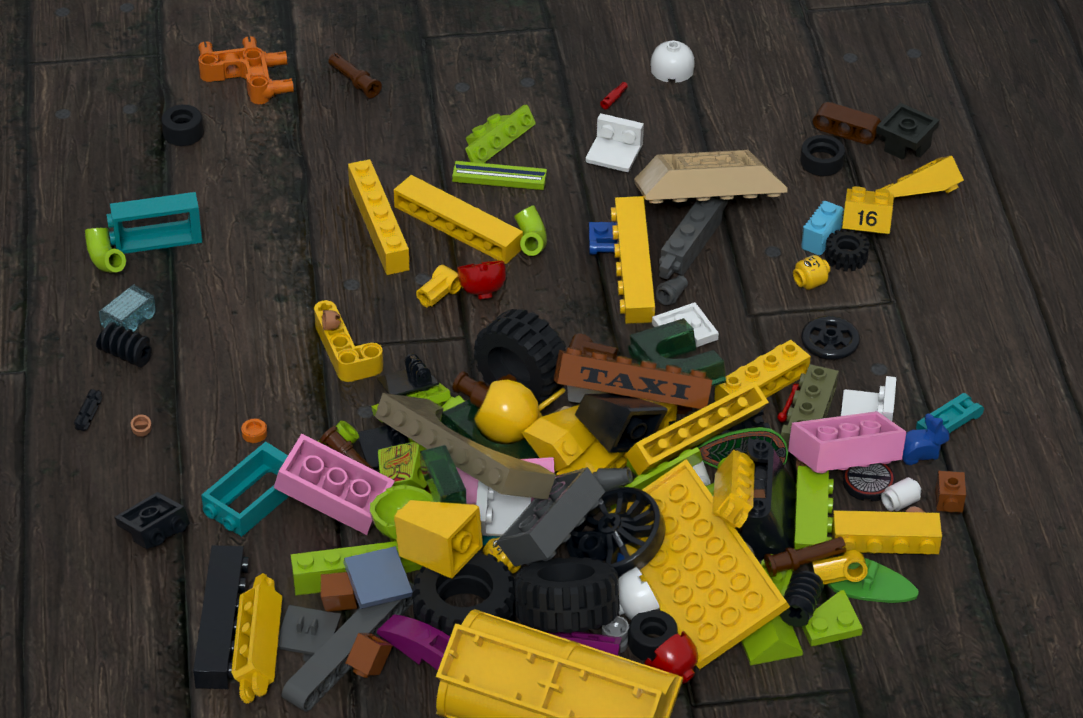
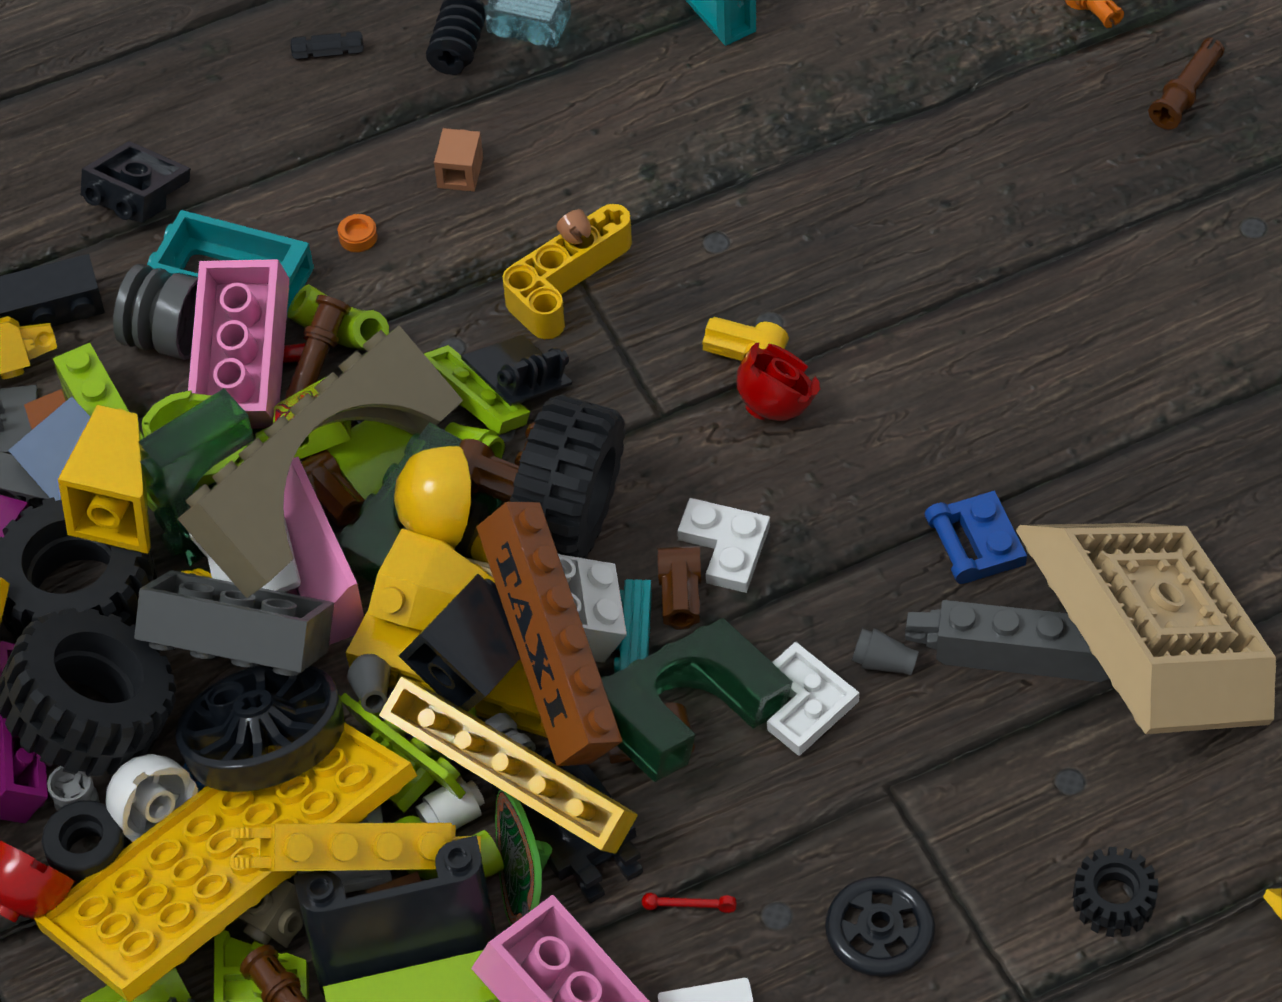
camera: 75 degrees right, 10 degrees up
(141, 425) = (307, 99): nougat hinge -> none
(229, 368) = (458, 159): none -> nougat brick
(281, 518) = (156, 311): none -> dark grey wheel
(378, 217) = (860, 217): yellow brick -> none
(458, 219) = (909, 319): yellow brick -> none
(497, 134) = (1144, 304): lime bracket -> none
(499, 175) = (1053, 341): lime tile -> none
(534, 232) = (923, 426): lime cylinder -> none
(569, 324) = (733, 535): none -> white plate
(616, 143) = (1201, 471): white bracket -> none
(634, 260) = (908, 573): yellow brick -> none
(770, 371) = (722, 843): yellow brick -> none
(811, 272) = (1024, 849): yellow head -> none
(813, 398) = (678, 935): olive brick -> none
(819, 227) = (1155, 832): medium azure brick -> none
(868, 210) = (1214, 892): yellow brick -> none

